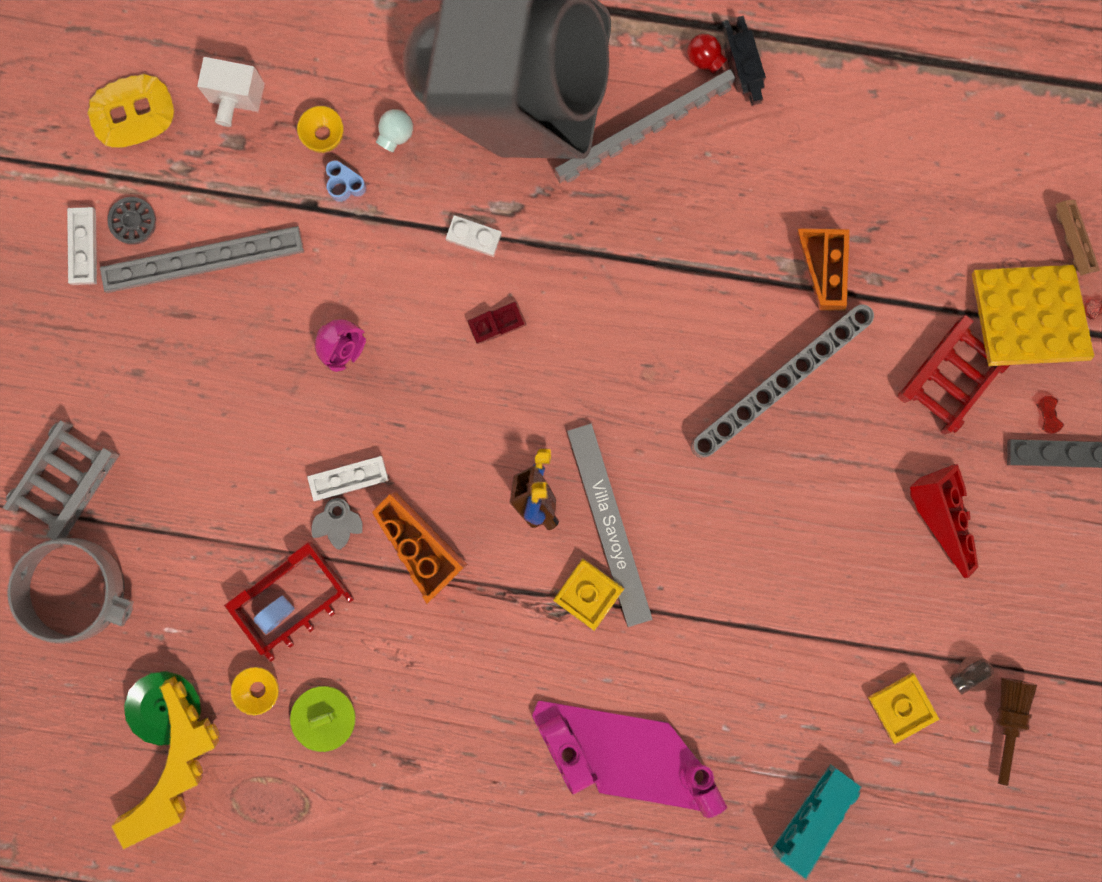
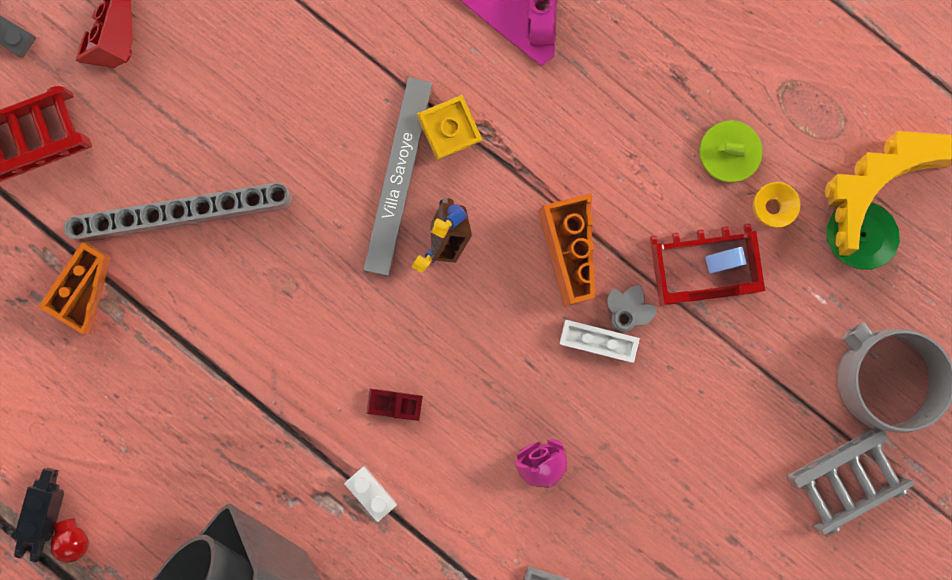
camera: 150 degrees left, 0 degrees up
(654, 122) = (152, 504): light grey plate -> none

